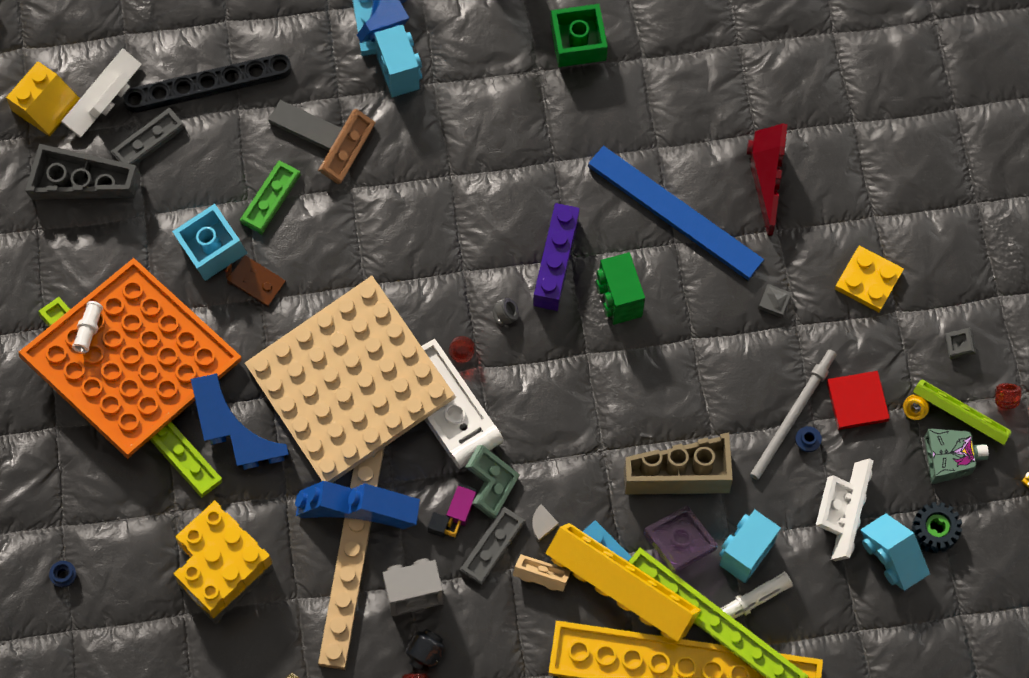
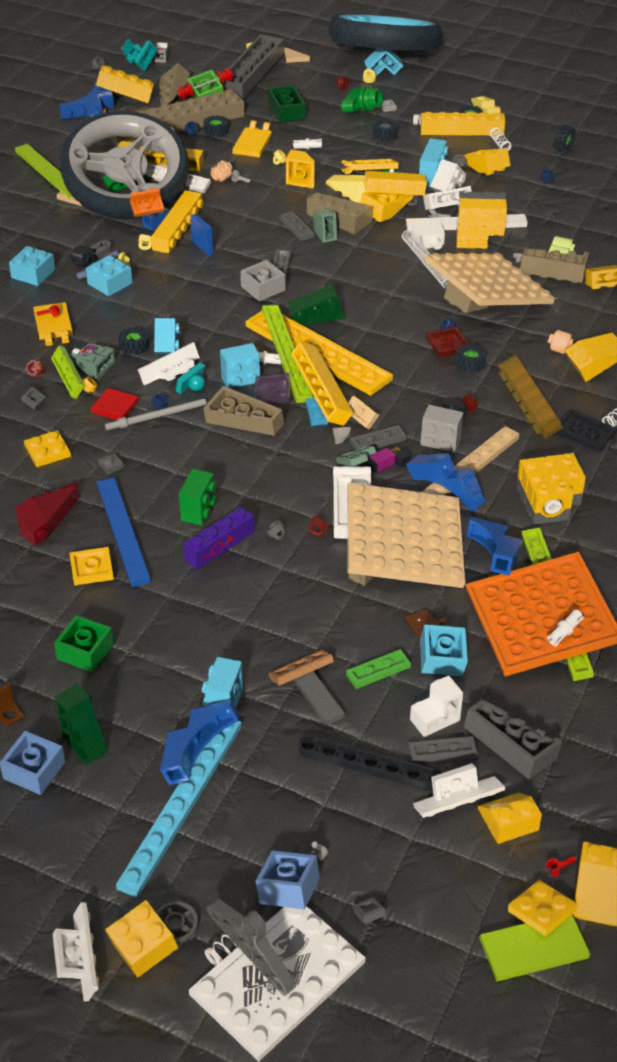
camera: 145 degrees left, 25 degrees down
(174, 168) = (438, 710): none -> white brick
(662, 141) = (91, 566): none -> yellow plate
(796, 498) = (192, 379): none -> teal tile

